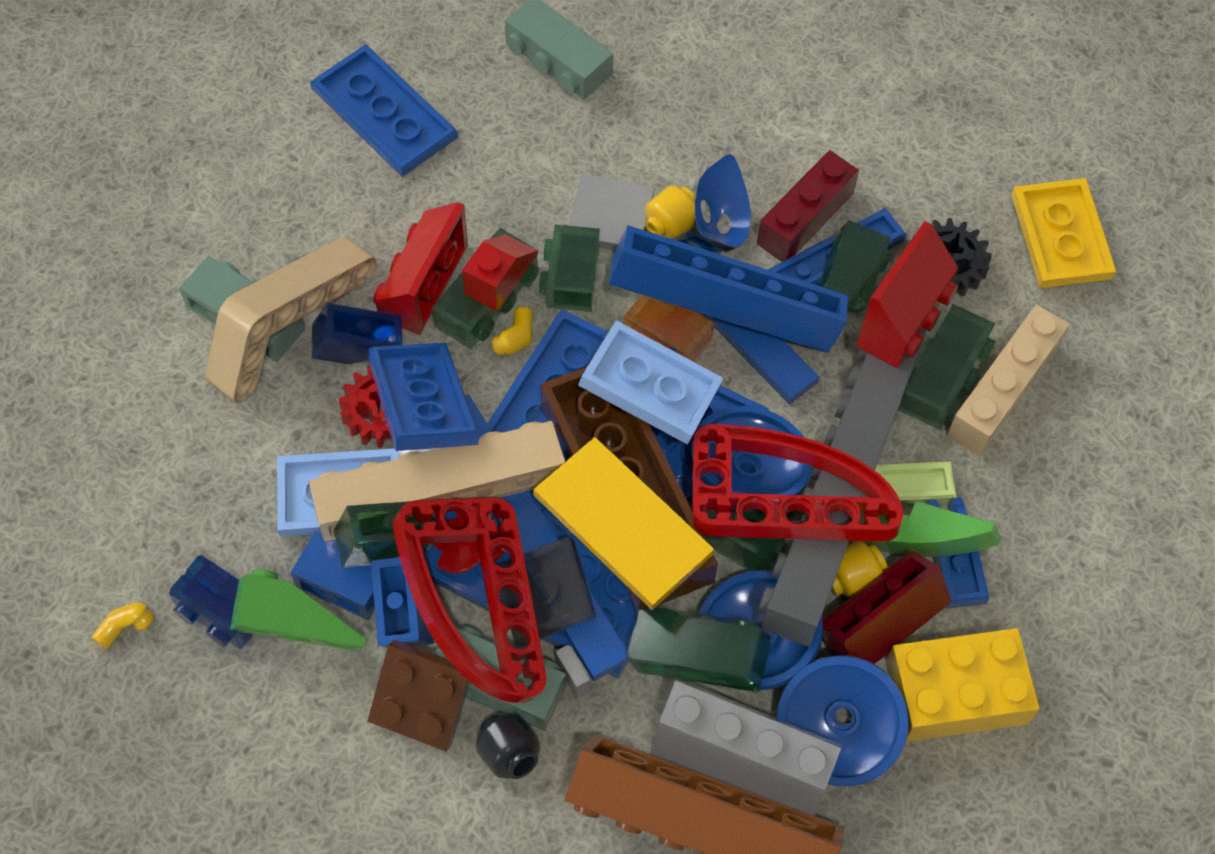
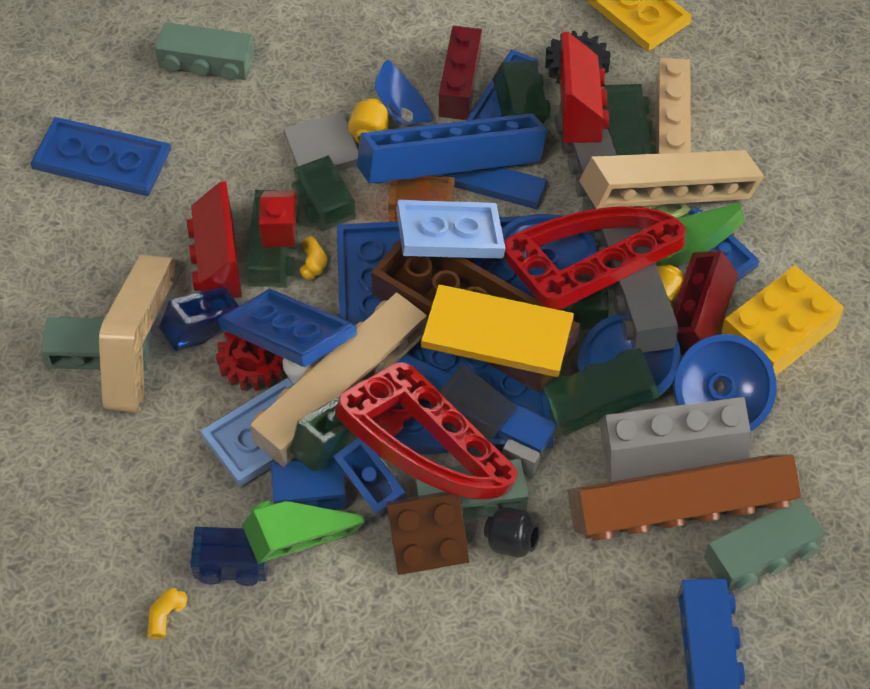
camera: 30 degrees left, 5 degrees down
(943, 452) = (670, 178): none -> tan brick

